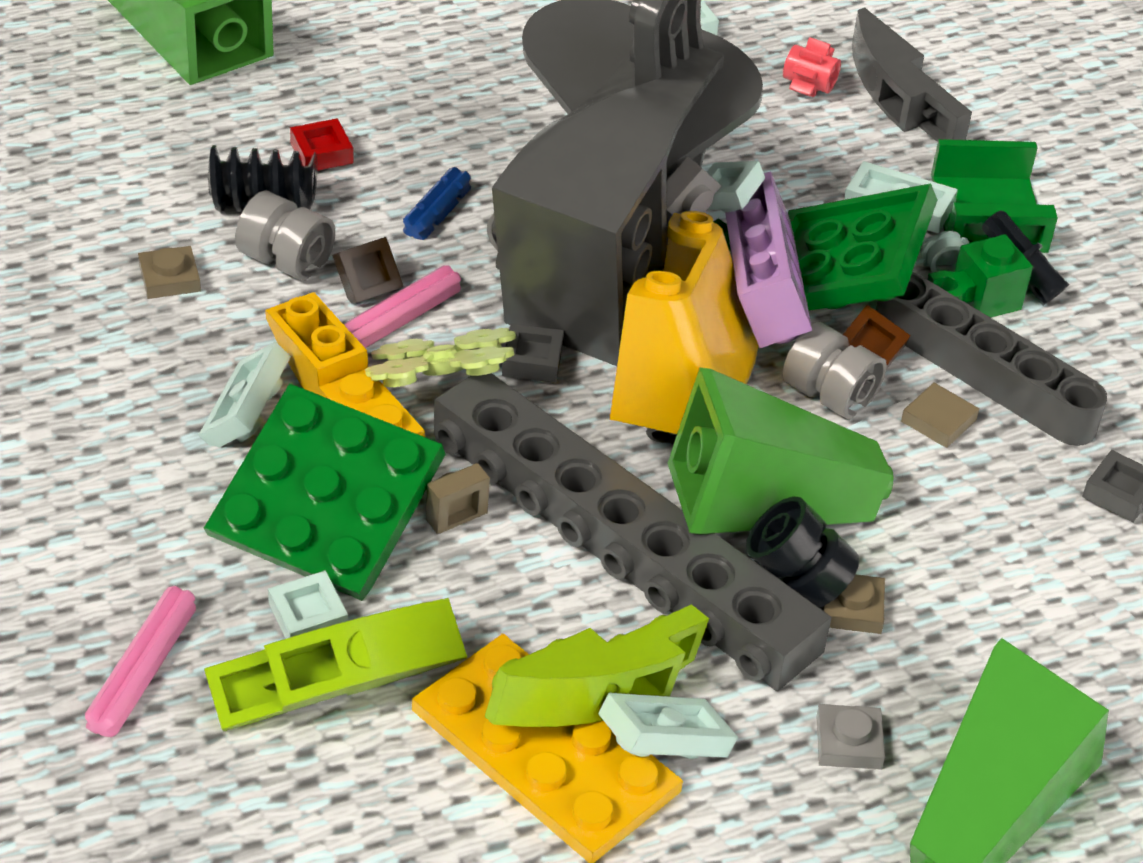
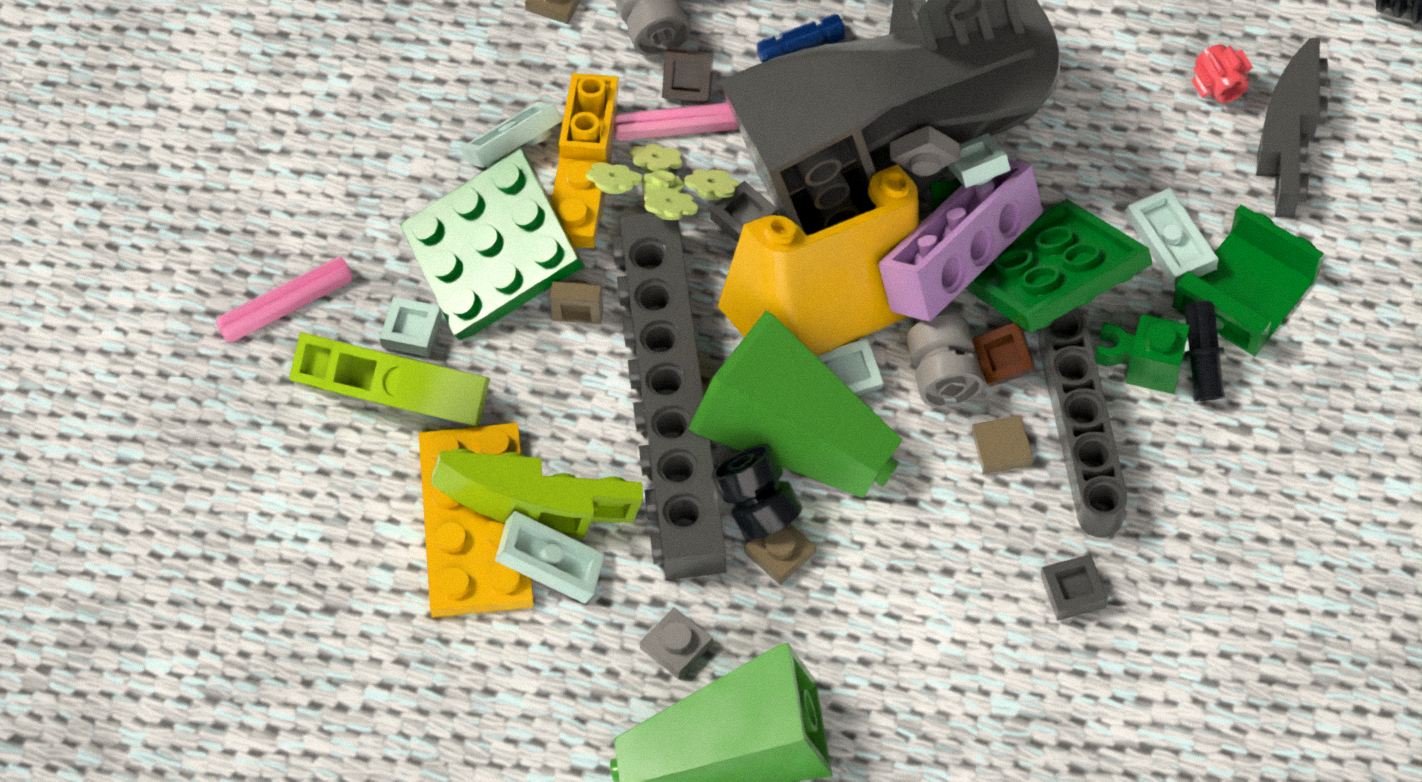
camera: 45 degrees right, 15 degrees up
(942, 250) = (1154, 304): light aqua plate -> none

